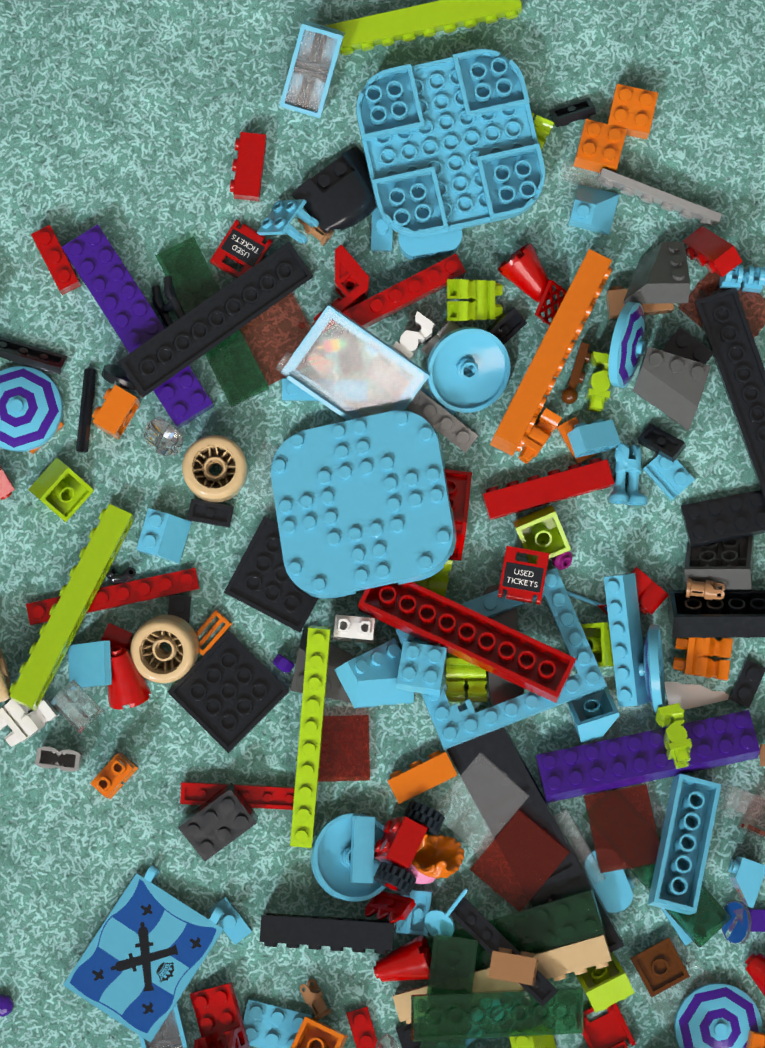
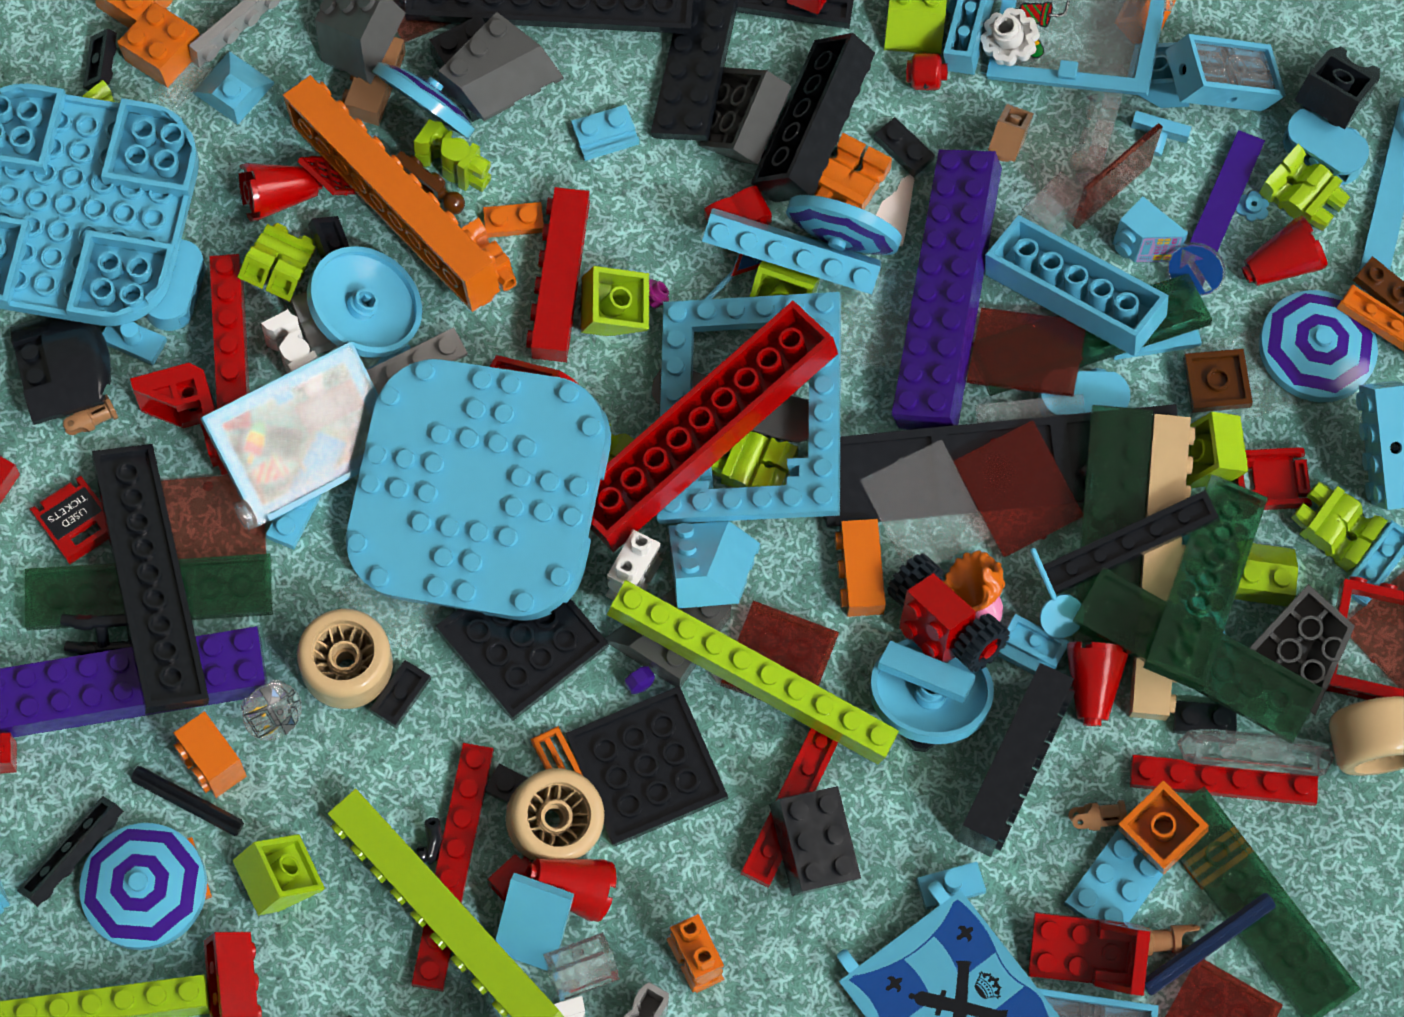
camera: 65 degrees left, 15 degrees down
(114, 373) = (164, 730): black tile -> none
(163, 535) = (401, 766): medium azure slope -> none
(280, 217) = (57, 445): medium azure plate -> none
(390, 905) = (1013, 667): red plate -> none
(421, 668) = (724, 496): medium azure brick -> none
(513, 967) = (1155, 530): medium nougat brick -> none
(523, 578) = (660, 339): container -> none
(593, 437) = (520, 192): medium azure brick -> none
(593, 714) = (869, 330): medium azure slope -> none
(627, 461) = (574, 171): medium azure piece -> none
(661, 442) = (562, 120): black plate -> none
(675, 736) = (943, 229): lime hips -> none
(707, 589) = (769, 135): medium nougat piece -> none

